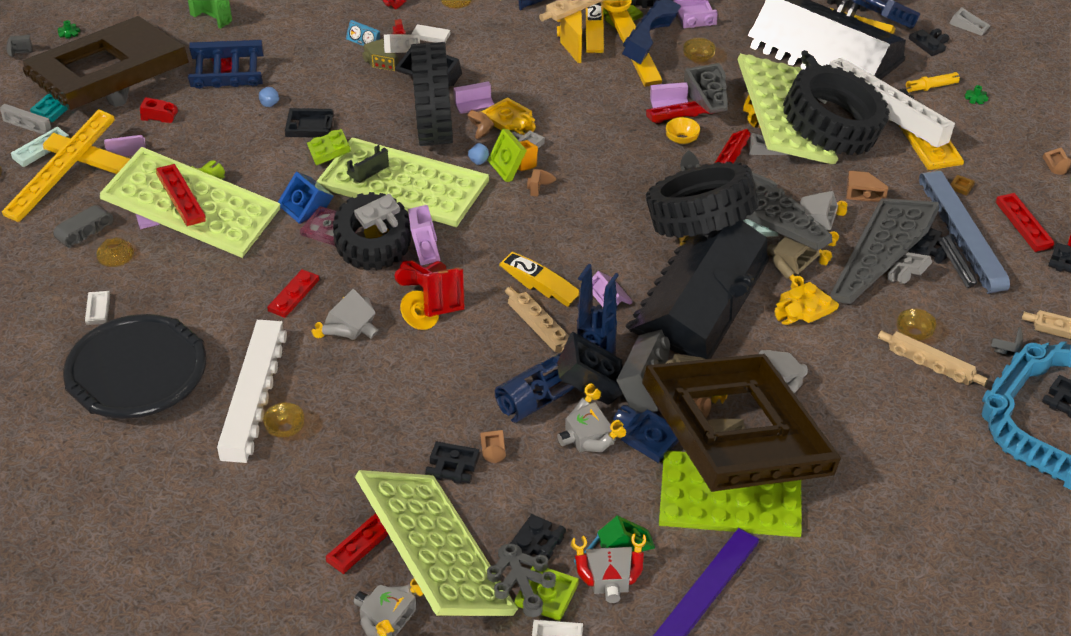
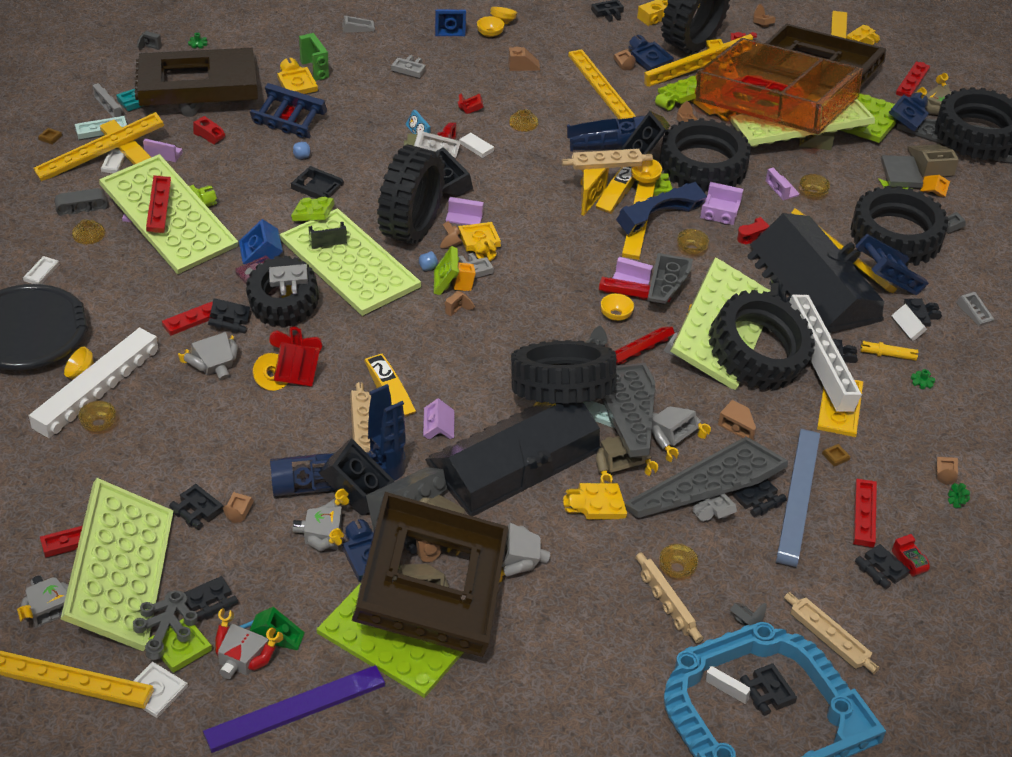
camera: 25 degrees right, 0 degrees up
(81, 175) = (113, 161): none -> white tile
(204, 29) = (296, 78): none -> yellow plate
(217, 378) = (78, 363): none -> yellow piece
(328, 273) = (229, 312): none -> black plate
(424, 234) = (318, 308): lavender panel -> none
(742, 23) = (751, 232): none -> red leg
(929, 52) = (909, 322): none -> white tile
(958, 261) = (767, 522): black axle -> none
(1040, 408) = (728, 684): none -> white tile

